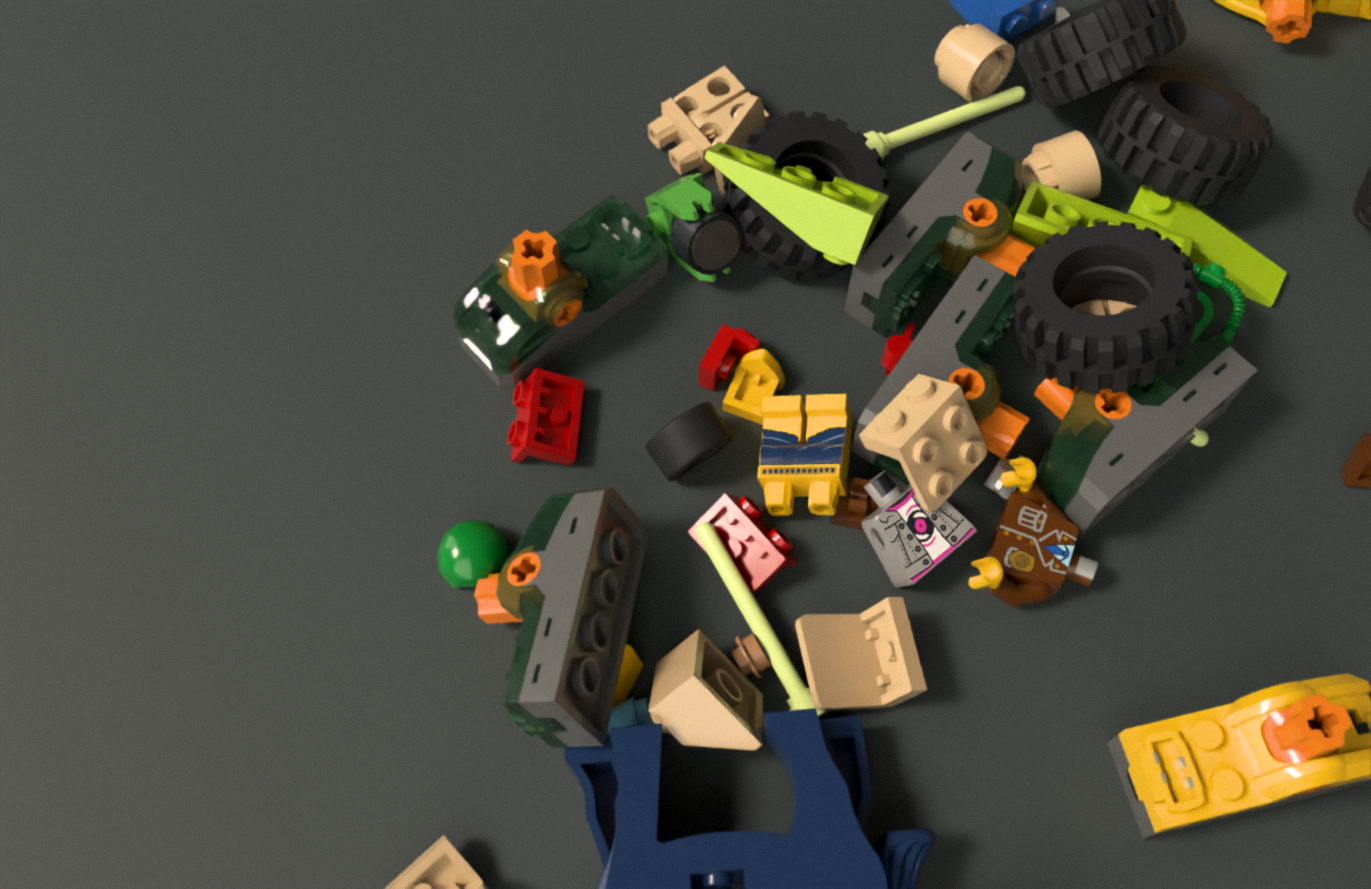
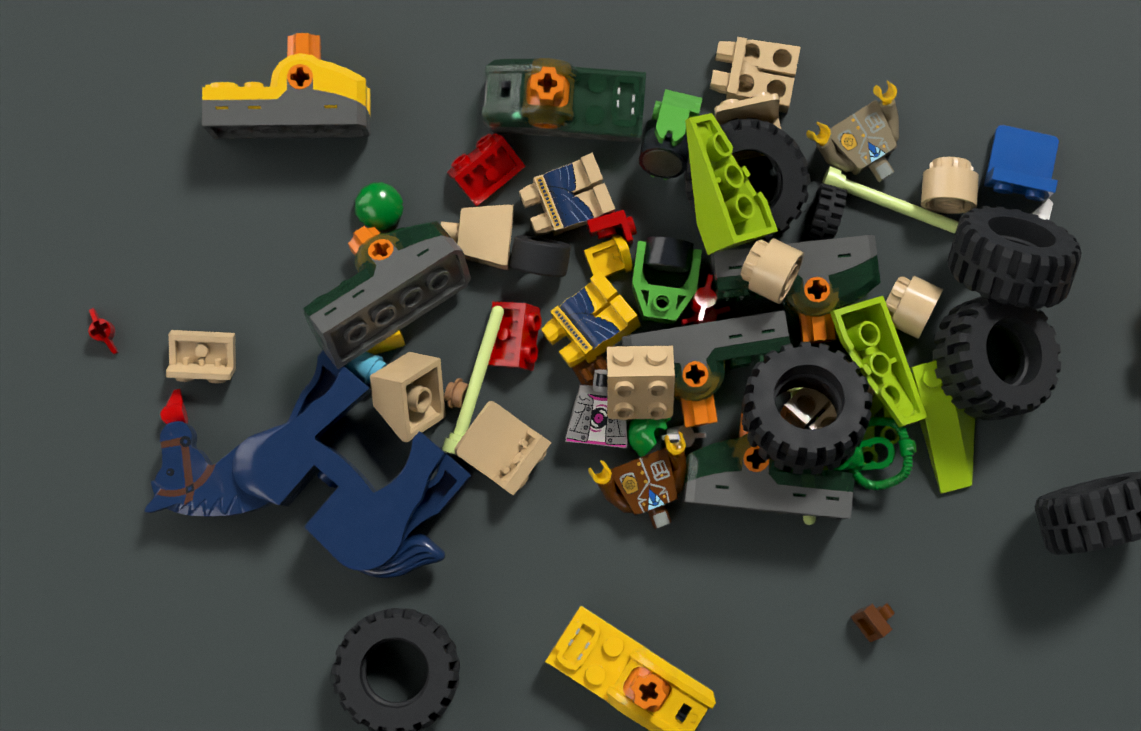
camera: 45 degrees right, 20 degrees up
(289, 523) = (302, 102): none -> piece
(617, 462) = (484, 234): none -> tan torso
(655, 368) = (561, 197): none -> hips
(808, 329) = (668, 256): none -> bright green piece
(858, 84) = (863, 137): none -> dark tan torso
(887, 329) = (703, 300): none -> red piece
(905, 163) = (826, 212): none -> black tyre
(928, 218) = (772, 269): none -> tan piece
(979, 500) = (641, 434): none -> green hair

